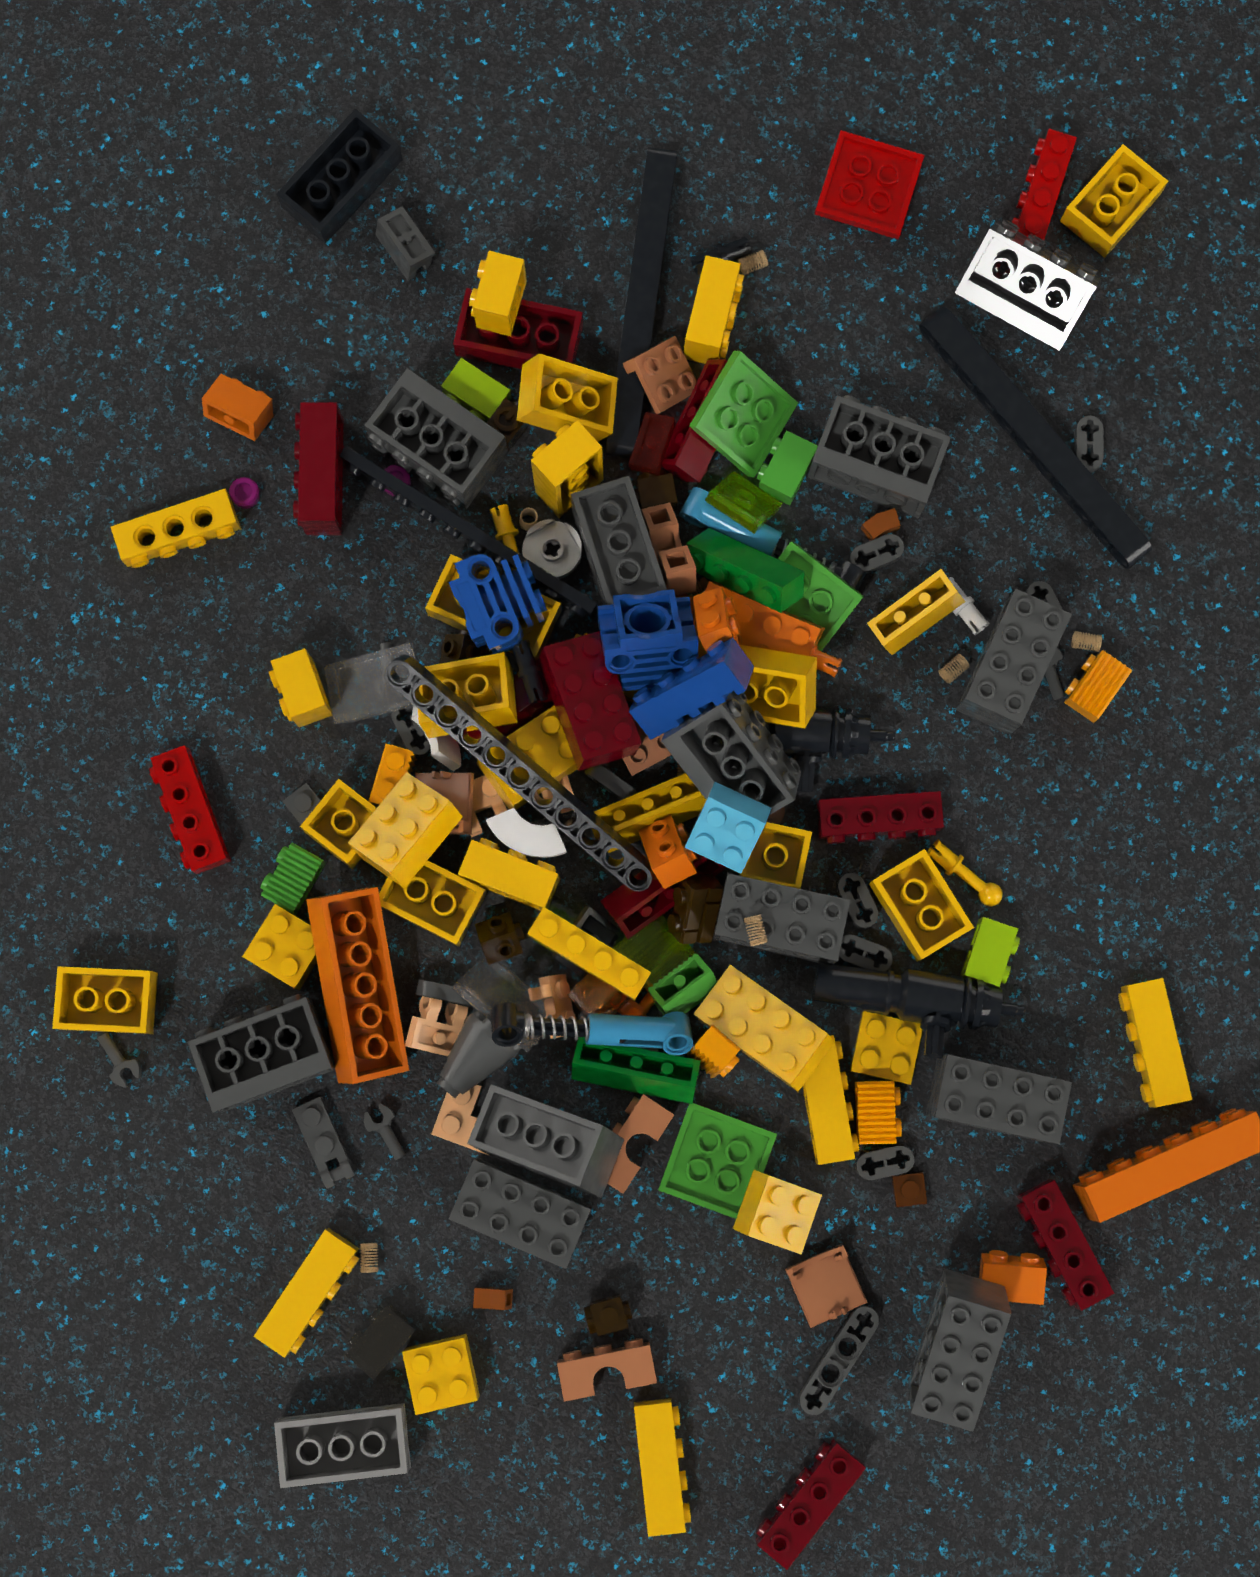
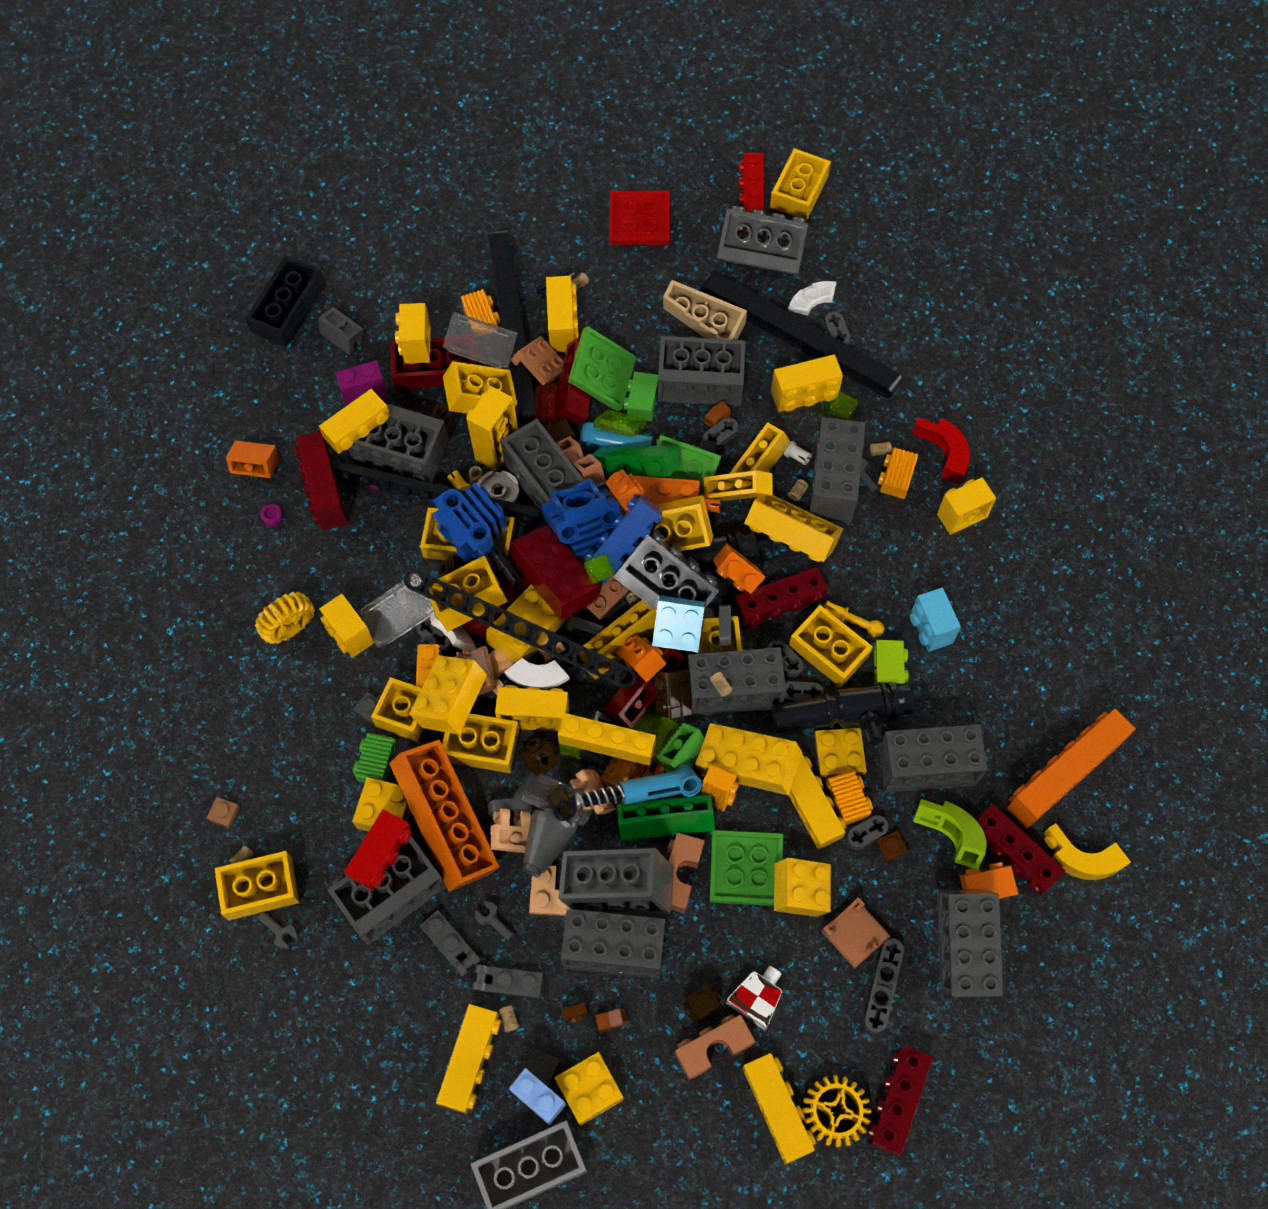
camera: 15 degrees left, 15 degrees down
(86, 888) = (223, 812): none -> medium nougat plate
(94, 957) = (243, 856): none -> tan piece
(130, 534) = (232, 538): yellow brick -> none
(190, 810) = (287, 734): red brick -> none
(225, 652) = (284, 617): none -> yellow gear
(262, 1014) = (378, 850): none -> red brick
(374, 1371) = (537, 1096): none -> light blue brick
(382, 1212) = (508, 982): none -> dark grey plate
(384, 406) = (354, 421): none -> yellow brick
(410, 346) = (360, 379): none -> magenta brick
(450, 1278) = (575, 1013): none -> reddish brown plate
(475, 390) = (415, 401): lime piece -> none
(587, 324) = (479, 341): none -> clear piece
(602, 274) = (479, 307): none -> light orange brick
(645, 725) = (598, 569): none -> clear neon green plate
(678, 1327) = (757, 997): none -> torso
(720, 1504) = (848, 1114): none -> yellow gear
(789, 843) = (724, 625): none -> dark grey beam
(833, 767) = (738, 568): none -> orange brick
(870, 652) = (738, 485): none -> yellow brick
(915, 373) = (704, 313): none -> tan wedge
(928, 725) = (793, 527): none -> yellow brick
(1002, 1197) = (958, 826): none -> lime arch
(1016, 519) = (806, 383): none -> yellow brick
(1057, 563) = (843, 406): none -> clear neon green plate
(1069, 912) = (934, 620): none -> medium azure brick
(1072, 379) = (811, 296): none -> white tile
(1155, 1043) = (1027, 692): yellow brick -> none
(1164, 1296) = (1083, 864): none -> yellow arch
(1169, 764) = (966, 505): none -> yellow brick
(1186, 667) = (951, 442): none -> red arch

